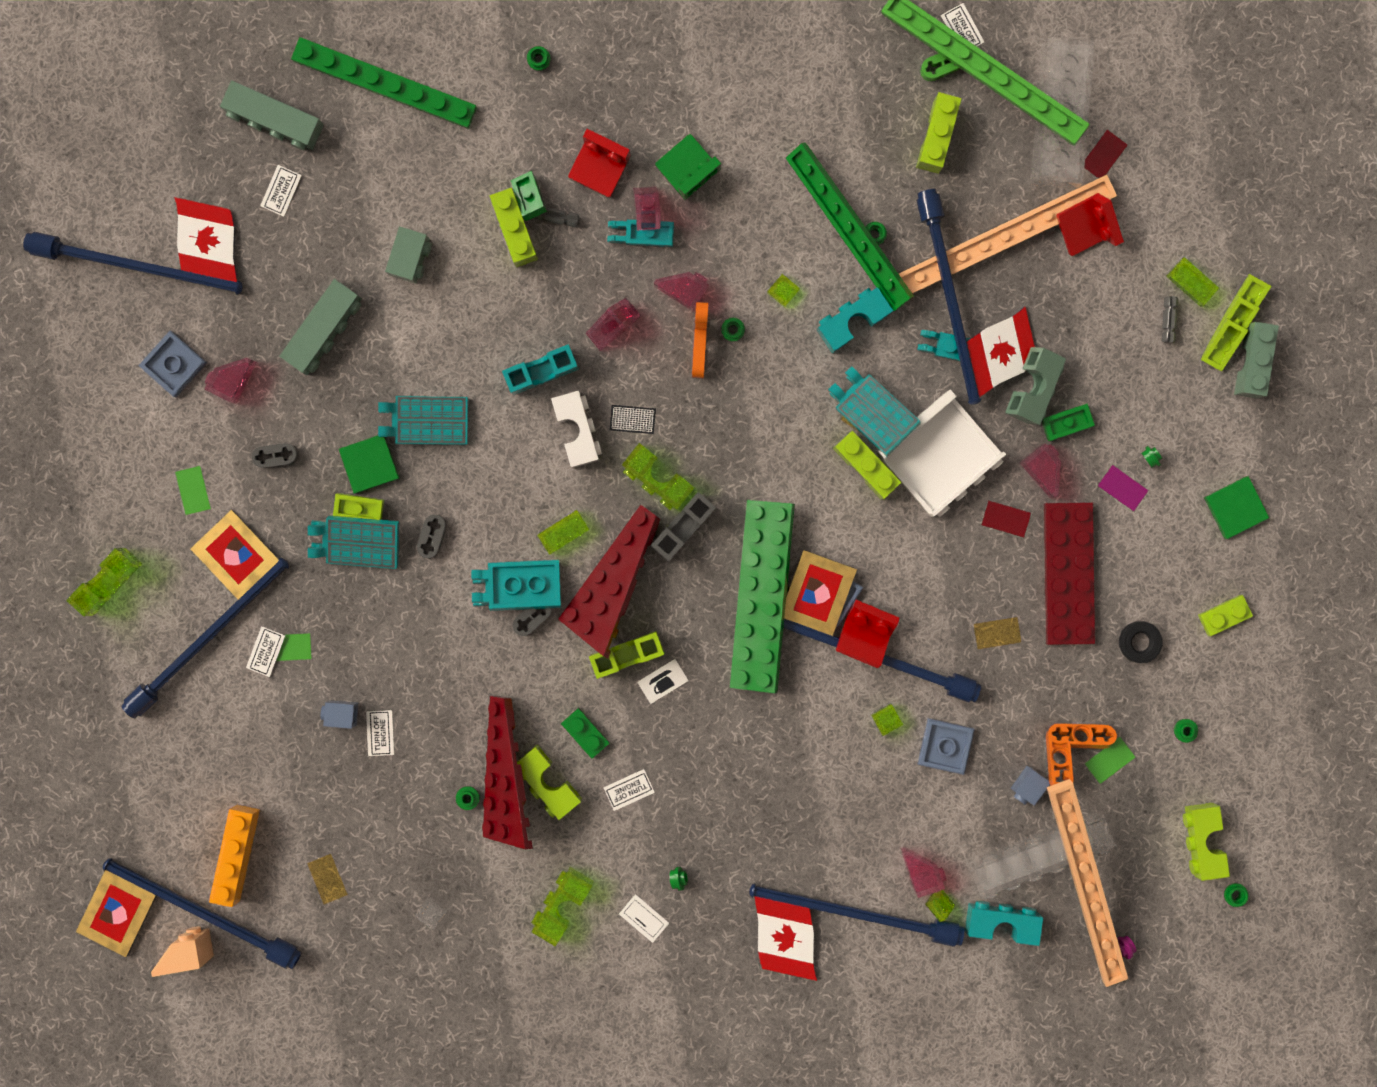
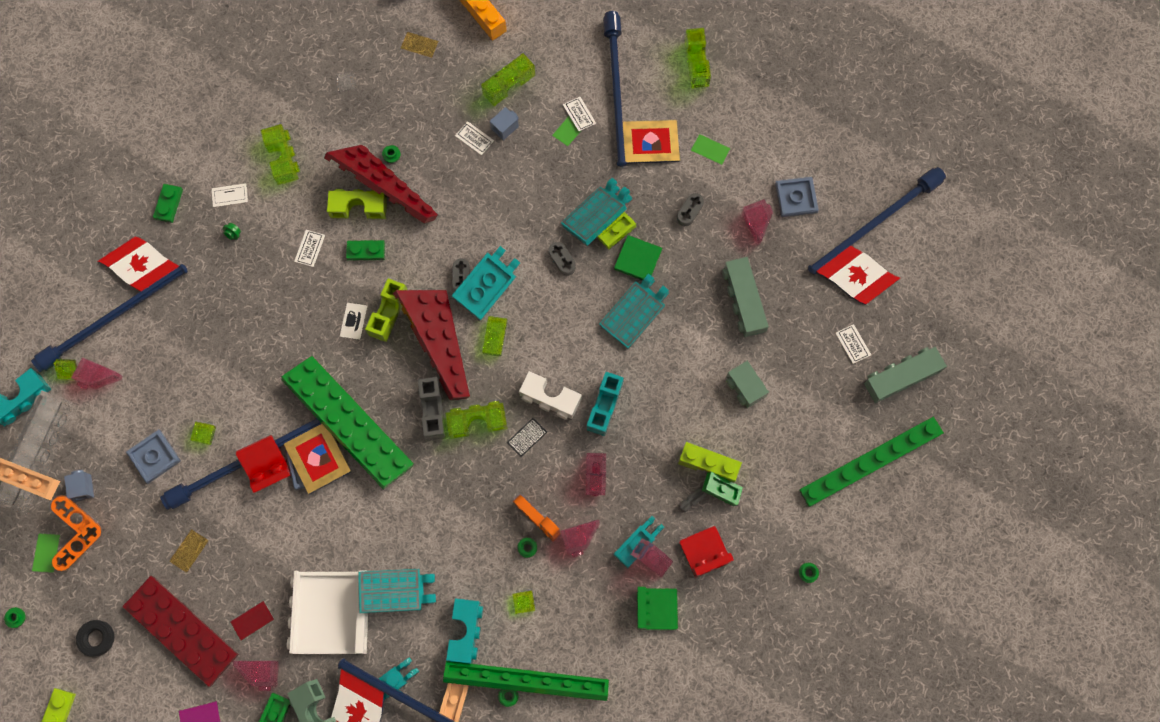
camera: 130 degrees right, 15 degrees down
(281, 751) = (497, 86): none -> clear neon green arch
(703, 969) = (168, 203): none -> green plate
(867, 464) = (365, 556): lime arch -> none

